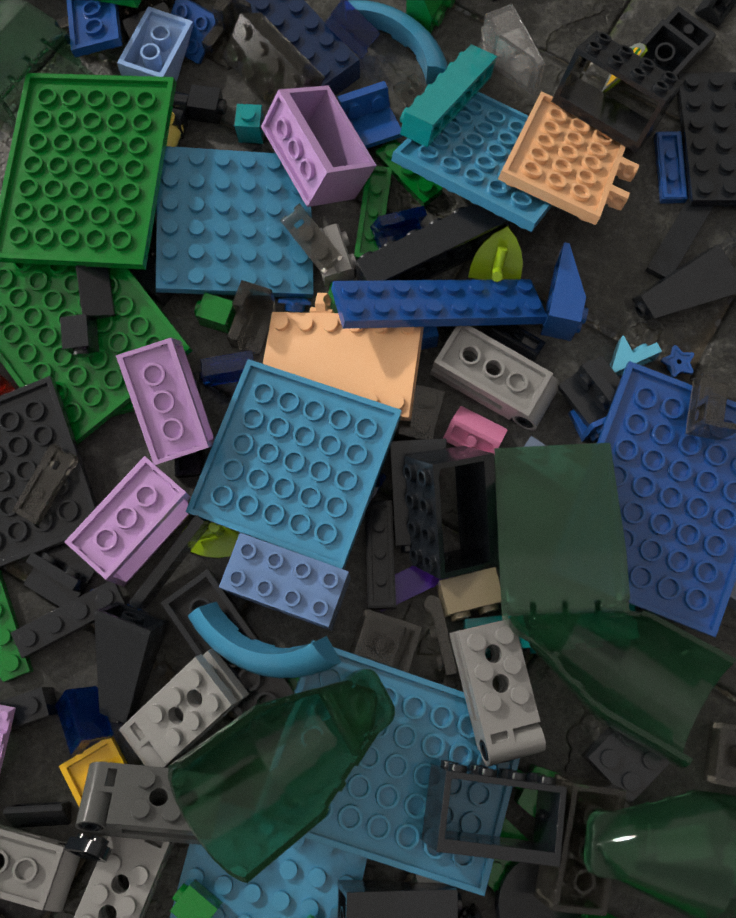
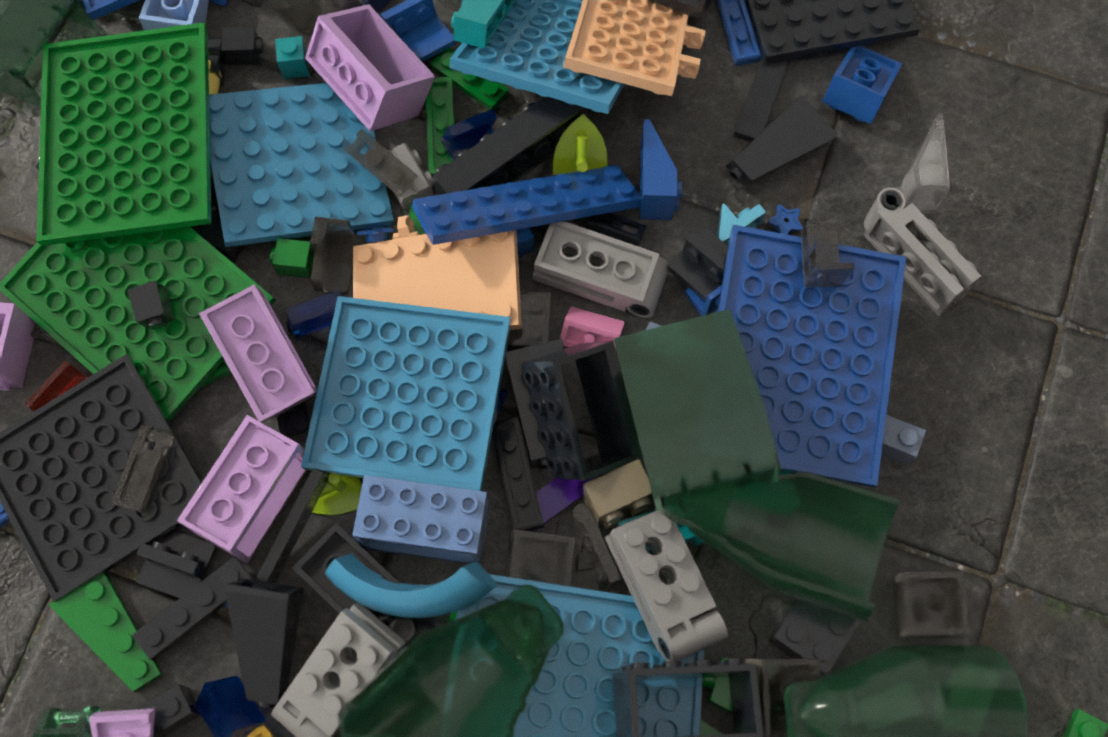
camera: 15 degrees left, 5 degrees down
(95, 291) = (160, 257): black slope -> none

